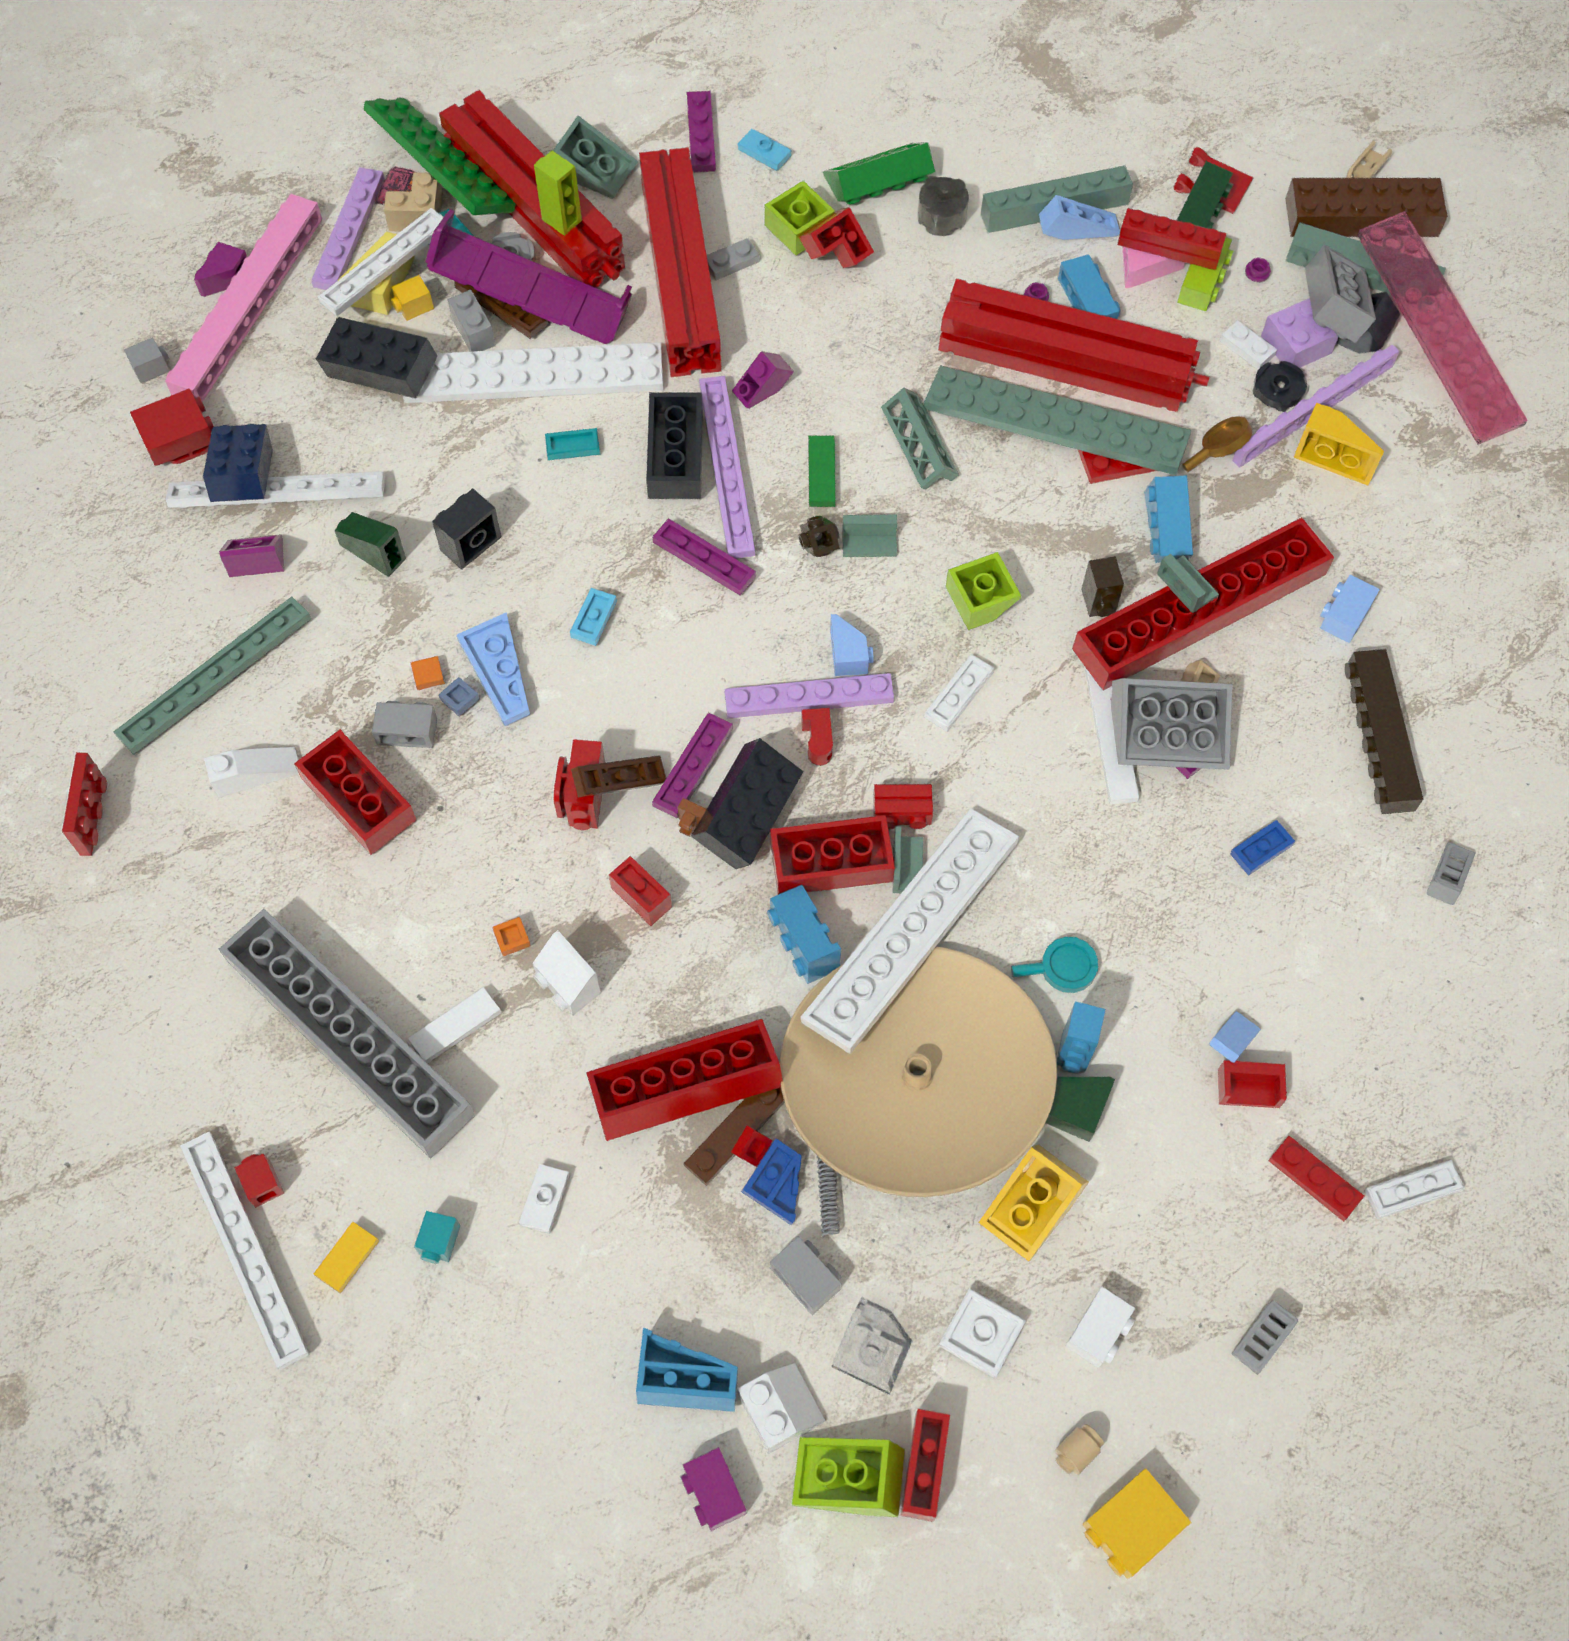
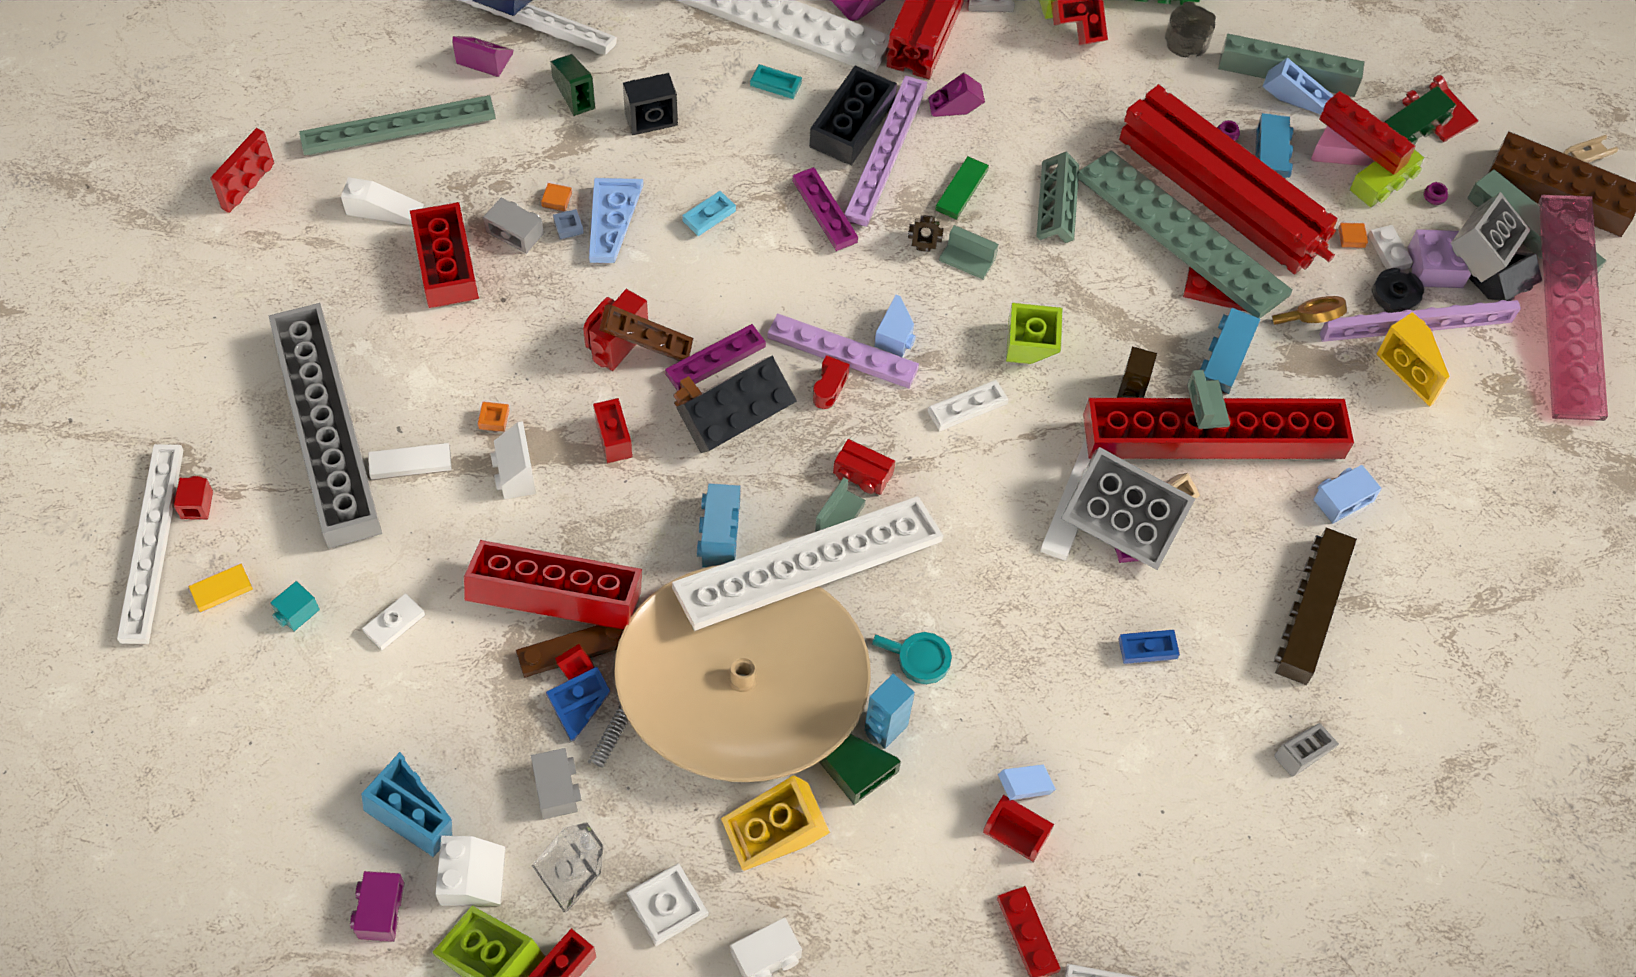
camera: 25 degrees right, 5 degrees down
(832, 854) = (780, 475): red brick -> none
(1209, 347) = (1353, 235): none -> orange tile

